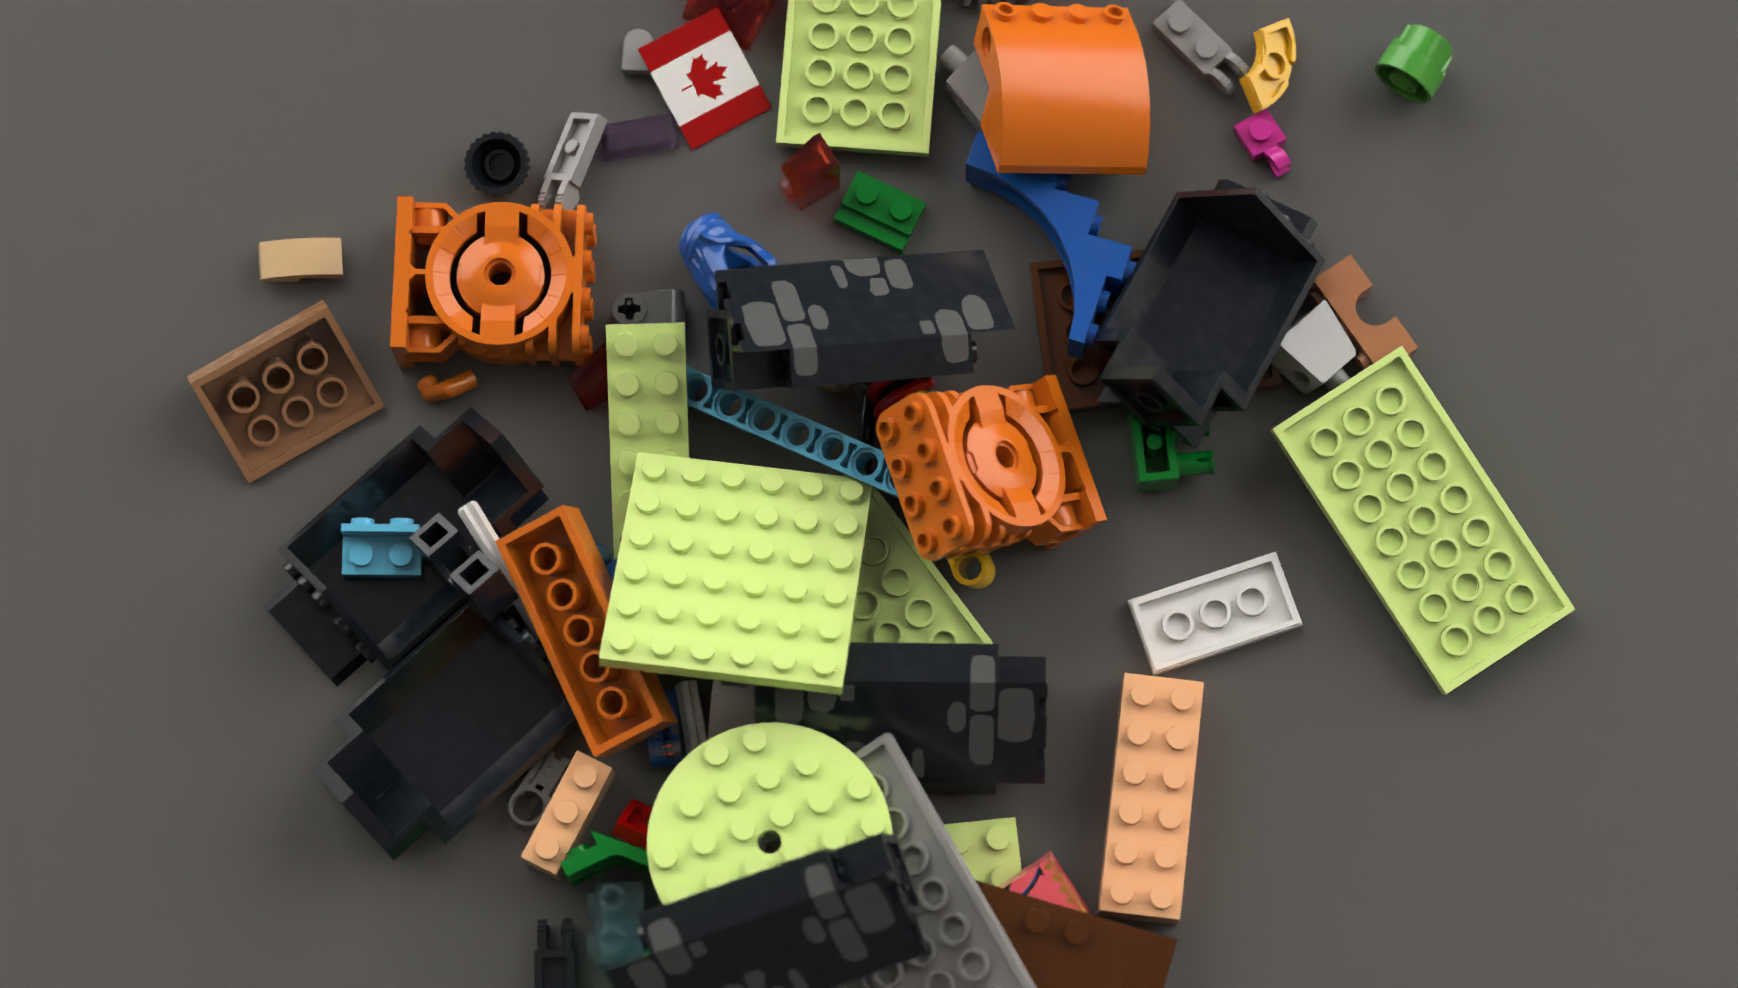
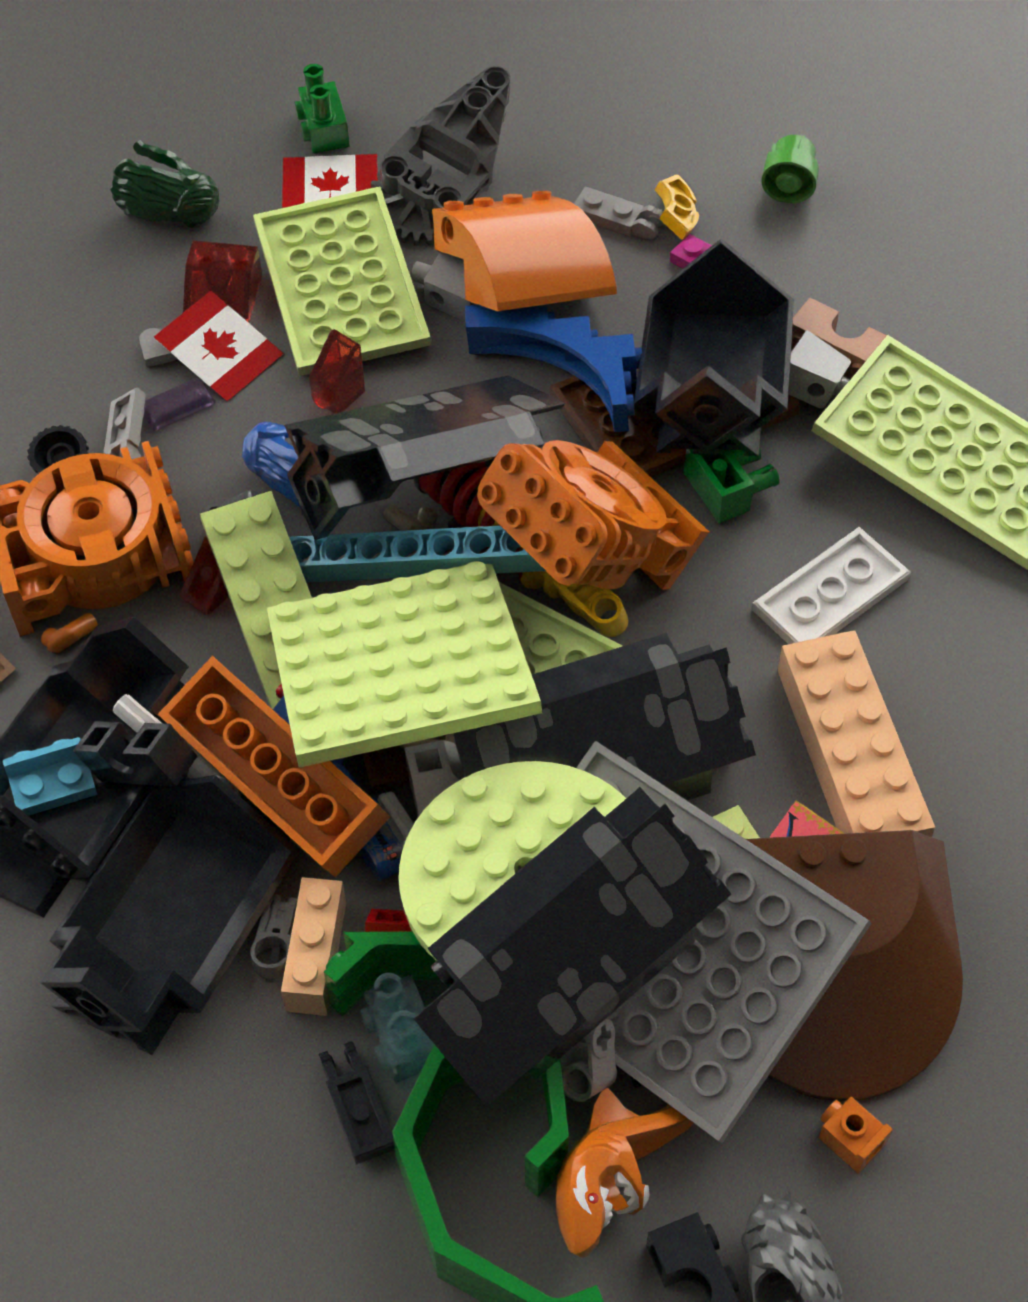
camera: 20 degrees left, 20 degrees down
(879, 212) = (397, 385): green plate -> none

